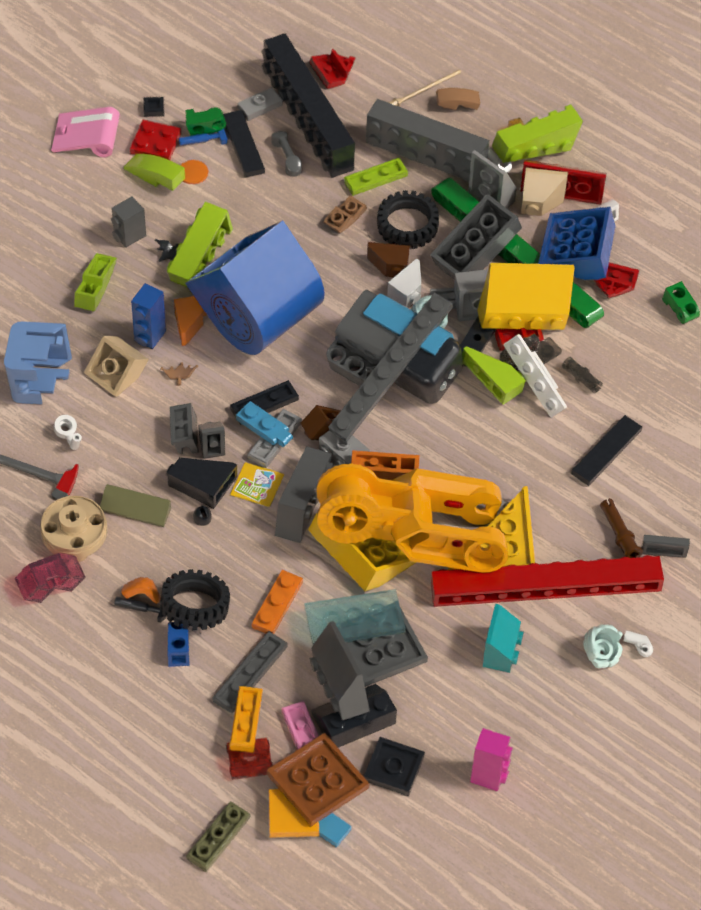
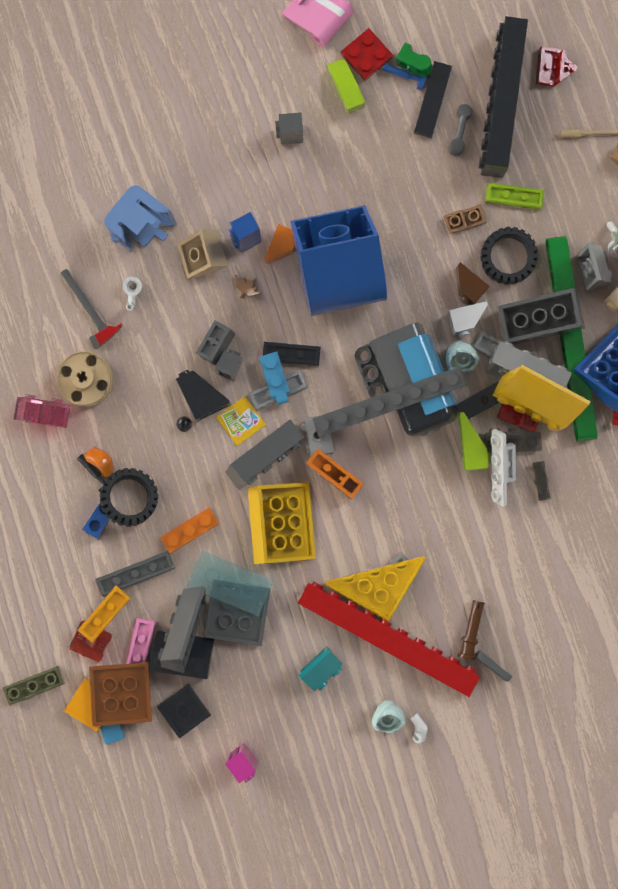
camera: 35 degrees right, 30 degrees up
(94, 282) = (235, 165): lime slope -> none
(135, 505) = (140, 386): olive slope -> none
(153, 106) = (387, 18): black tile -> none
(169, 251) = (308, 171): black piece -> none
(195, 171) = (376, 100): orange piece -> none
(200, 243) = (330, 183): lime wedge -> none
(260, 104) = (471, 67): light grey plate -> none
(318, 421) = (320, 403): reddish brown slope -> none
(364, 507) = (311, 534): light orange arm -> none
(423, 139) = (572, 192): dark grey brick -> none
(606, 450) = (512, 556): black tile -> none

